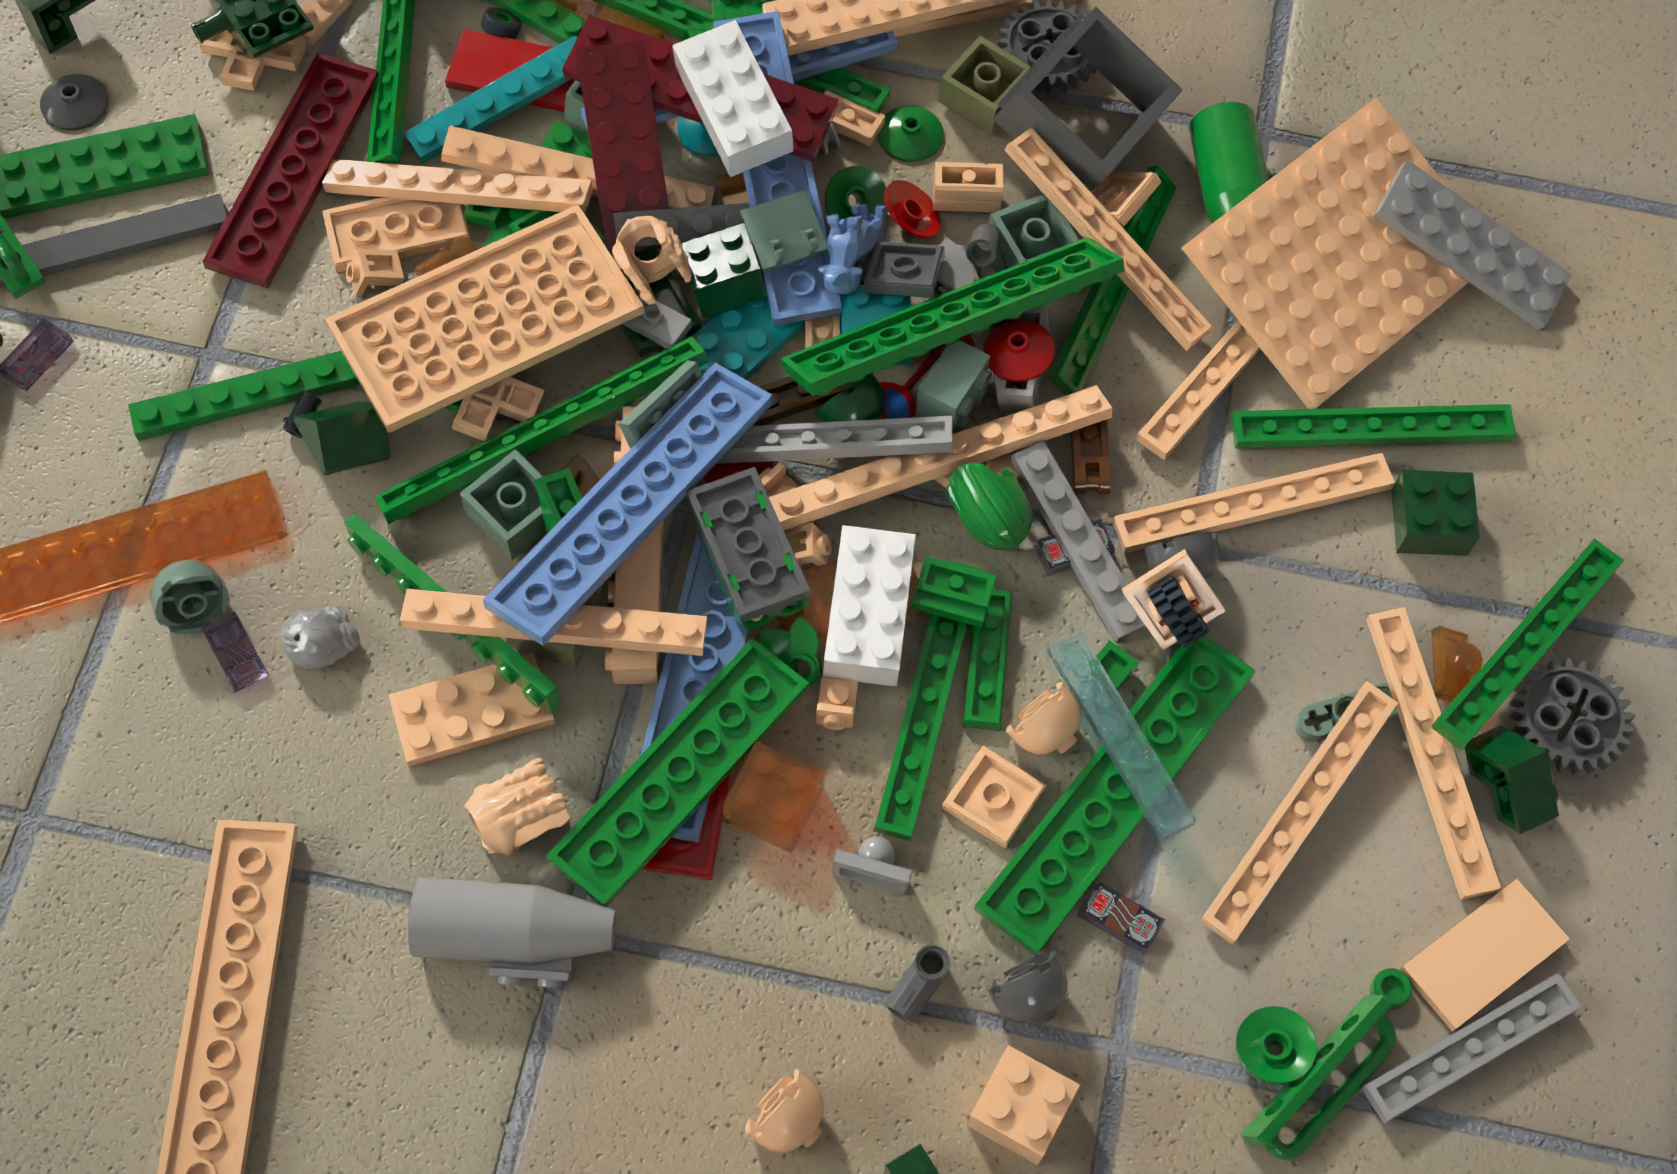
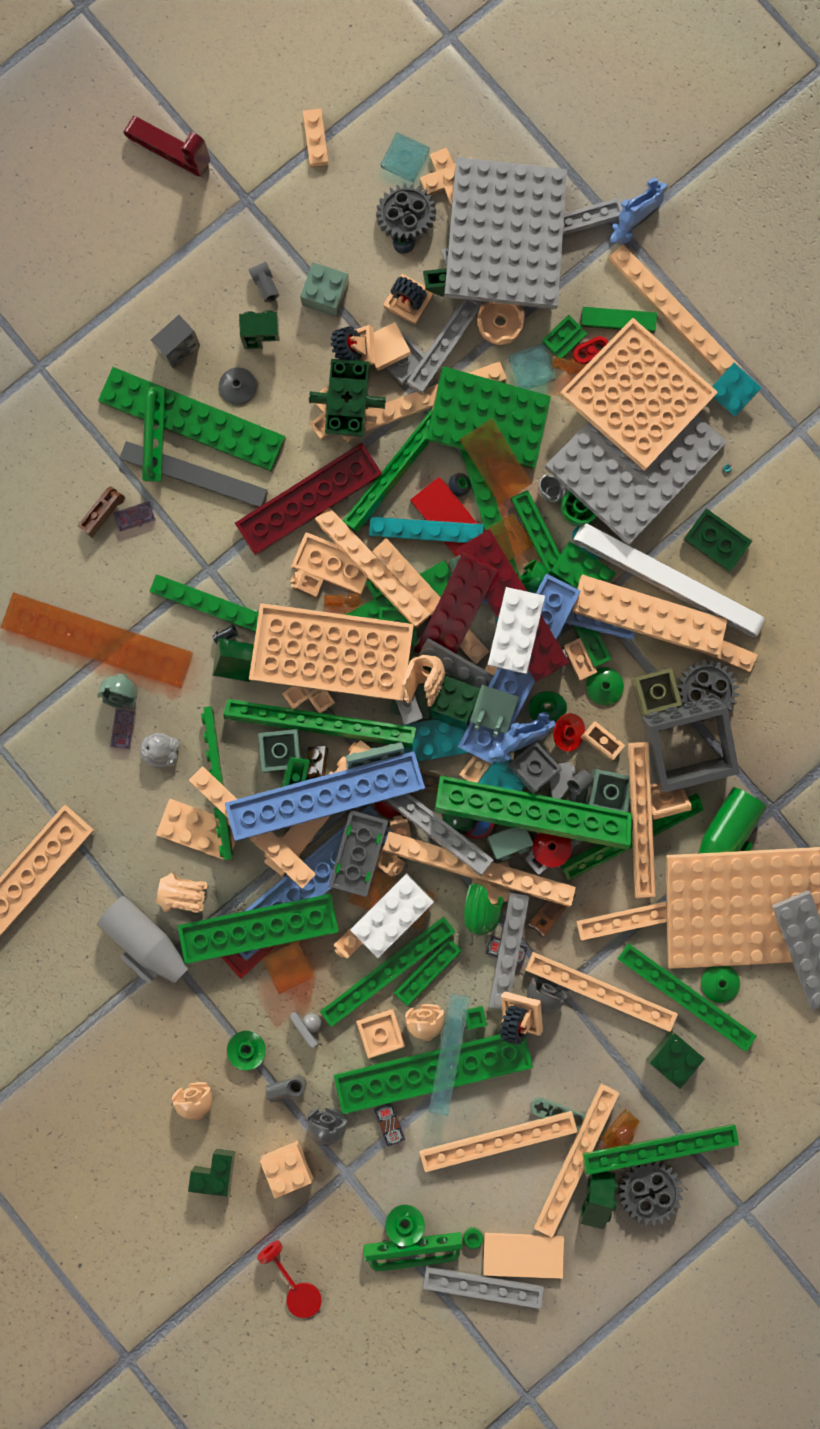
camera: 45 degrees right, 20 degrees up
(795, 646) = (346, 906): green plate -> none
(811, 954) = (239, 1057): none -> green dish
(953, 591) = (432, 936): green plate -> none
(1392, 391) = (711, 979): none -> green dish

